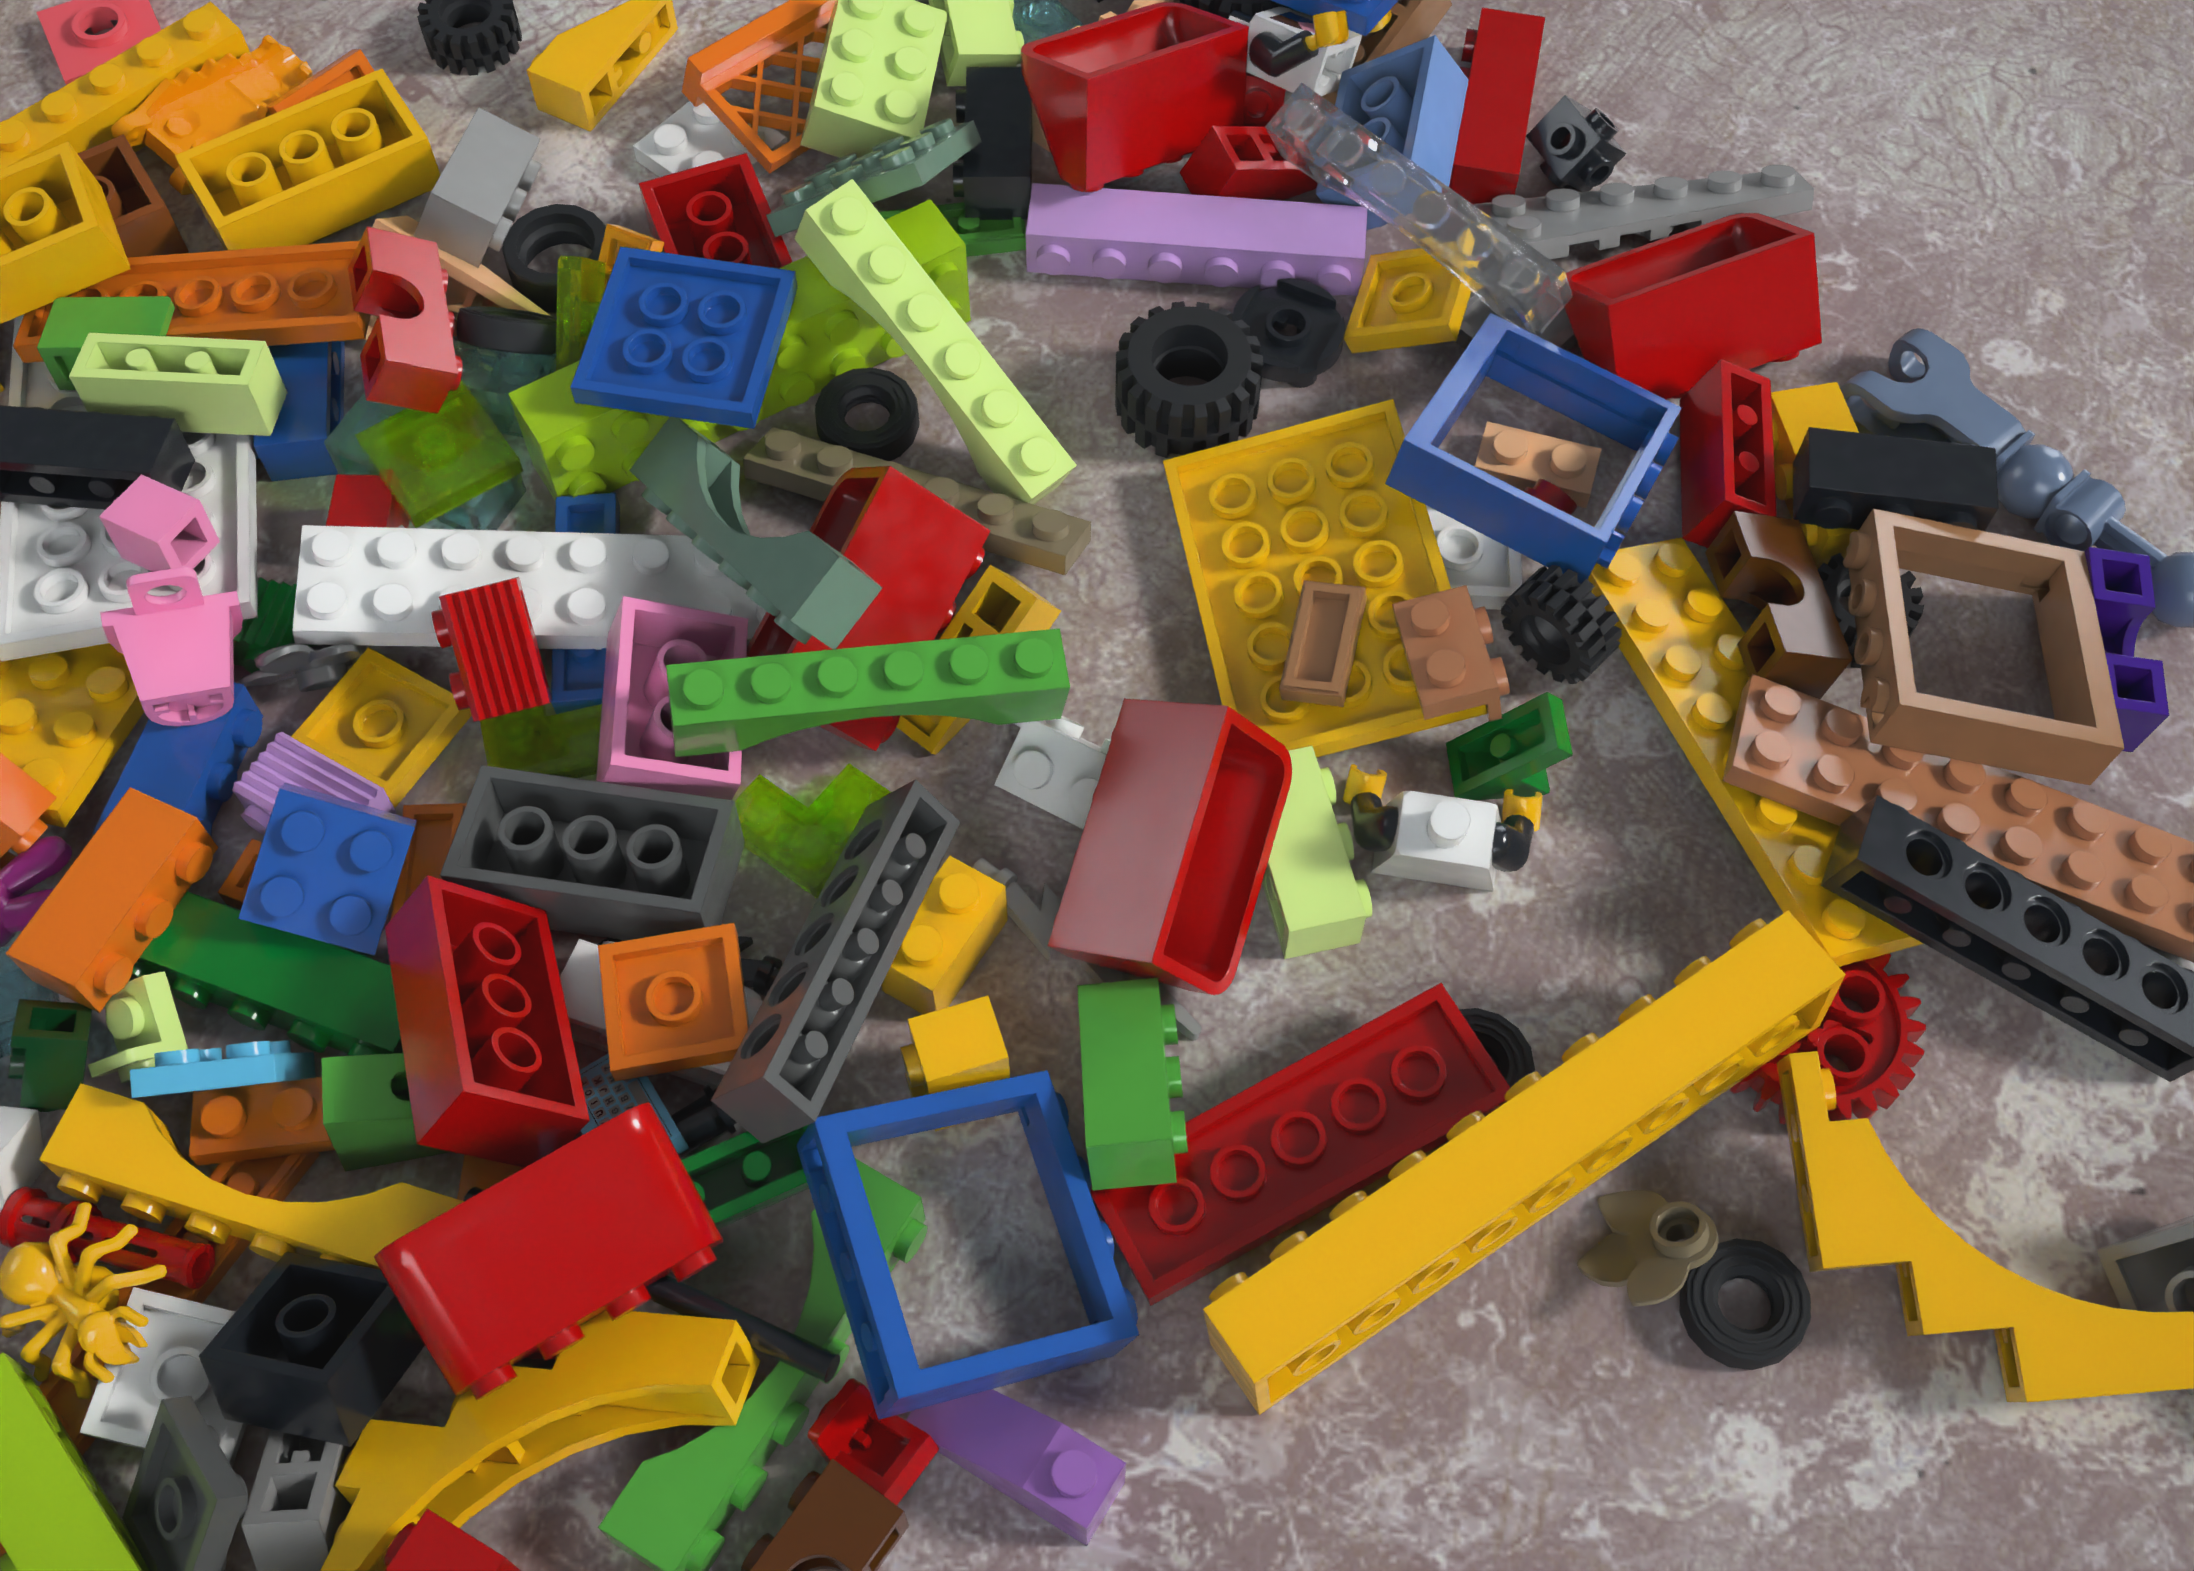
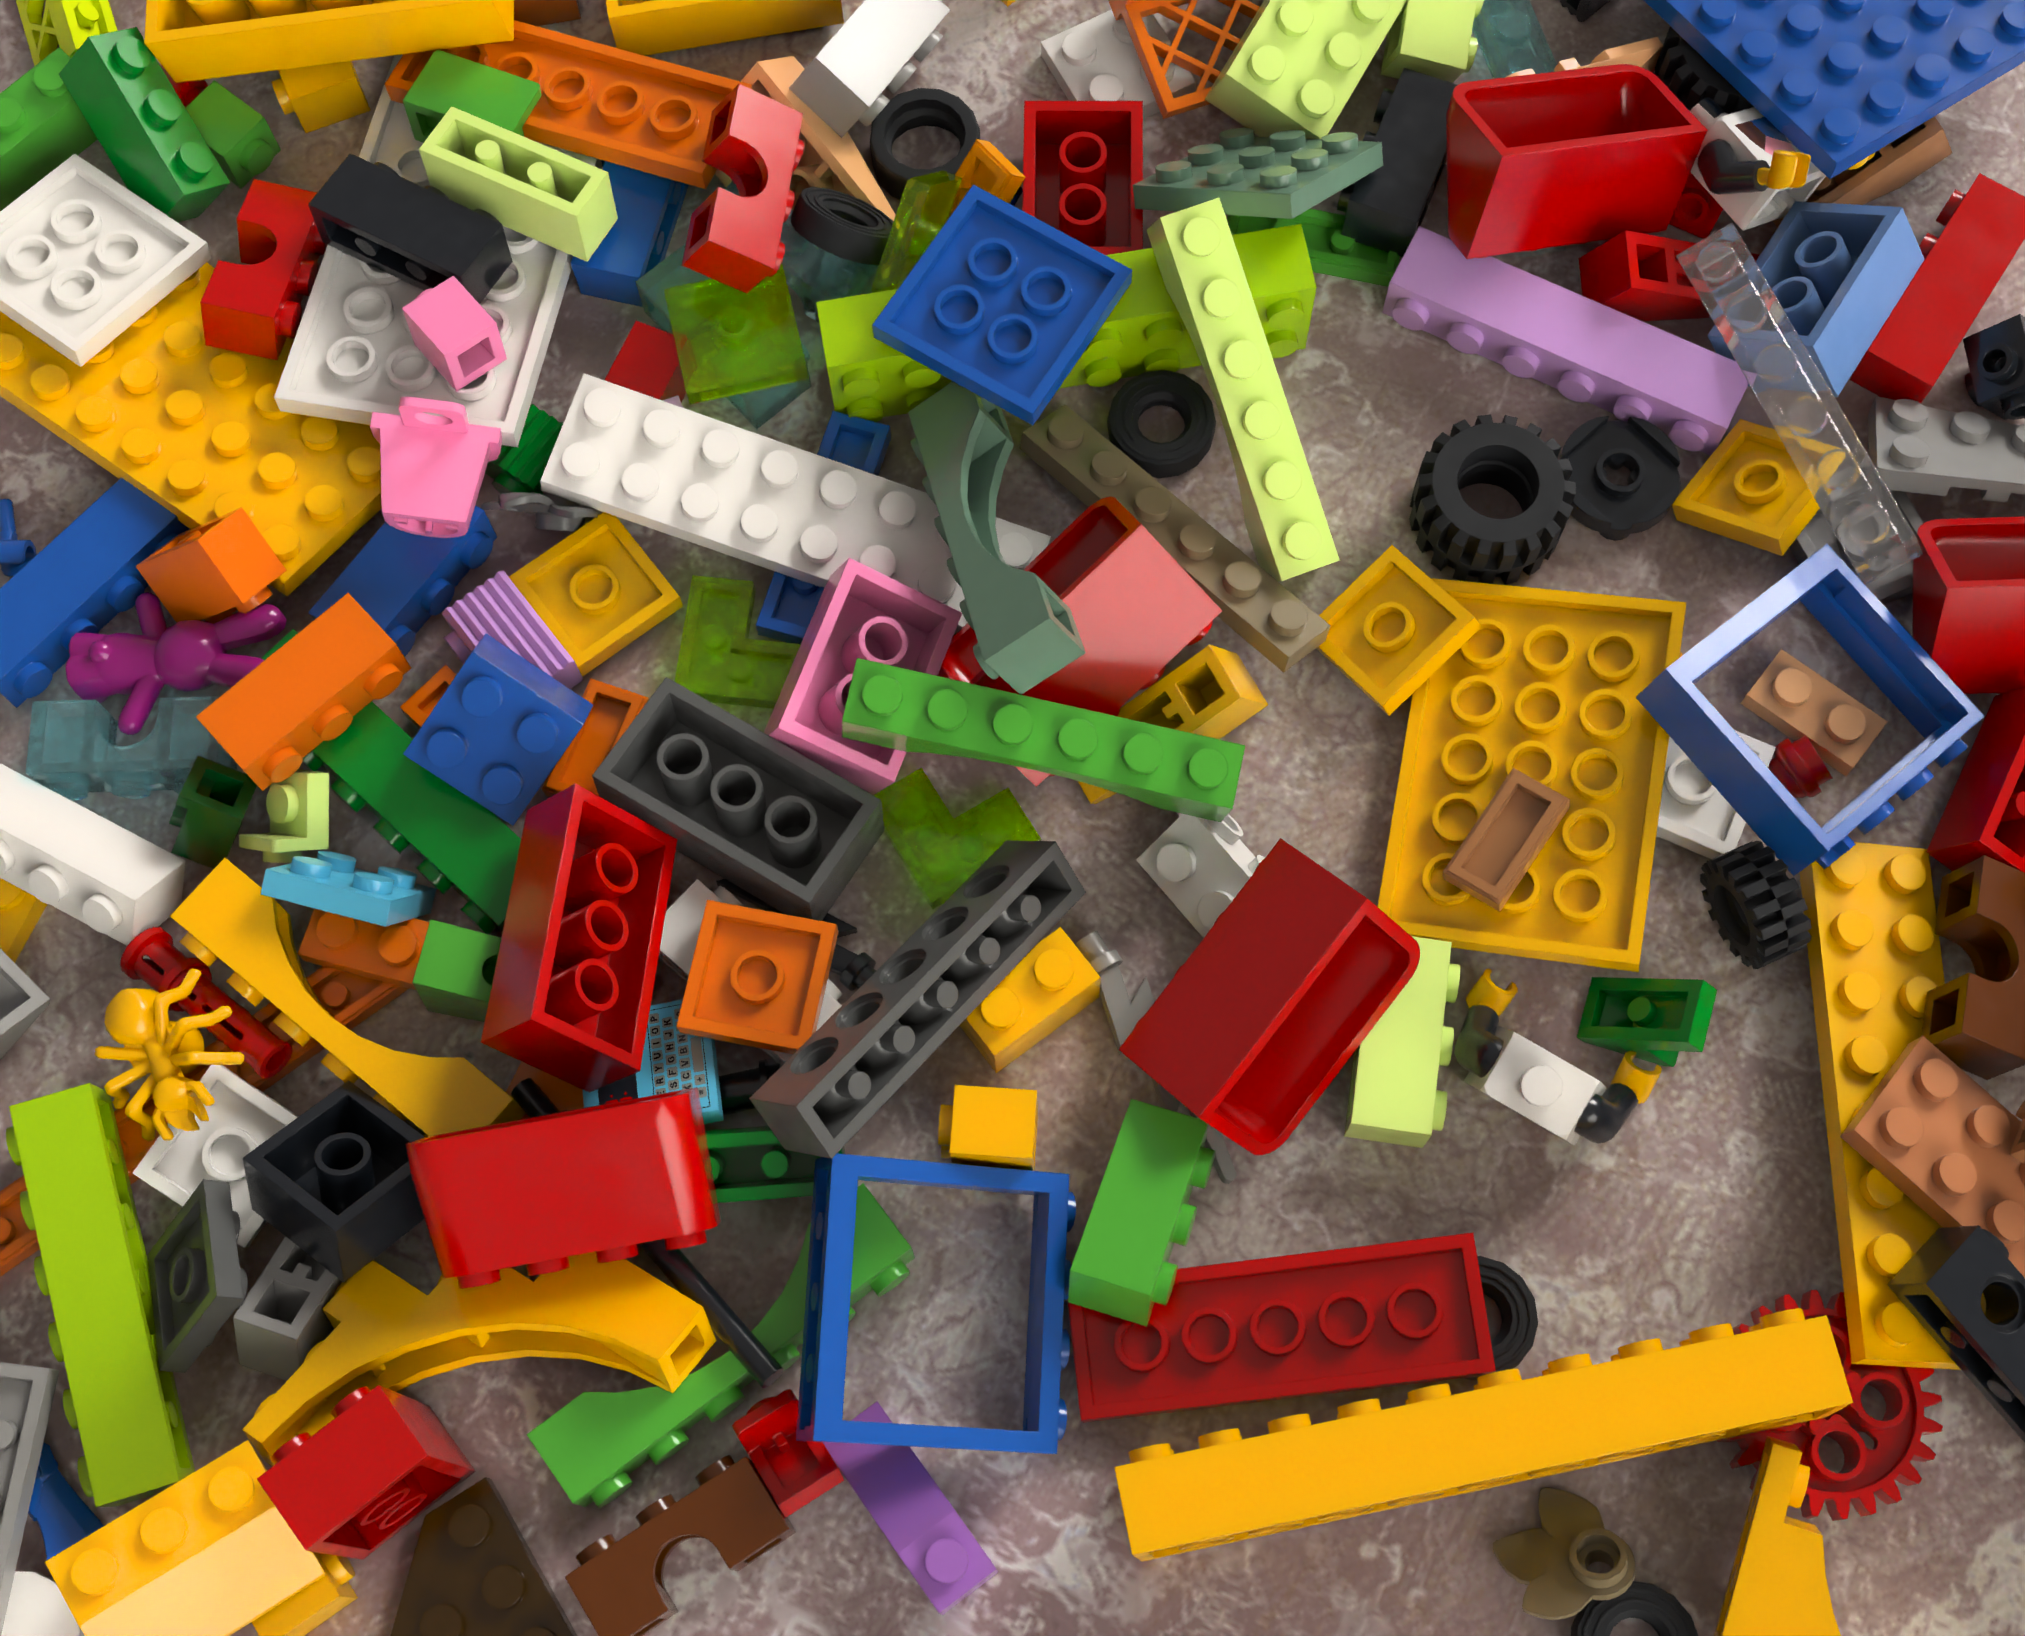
camera: 25 degrees right, 10 degrees up
(493, 650) = (715, 564): red brick -> none
(1148, 509) = (1394, 629): none -> yellow plate
(1449, 653) = (1622, 901): nougat bracket -> none

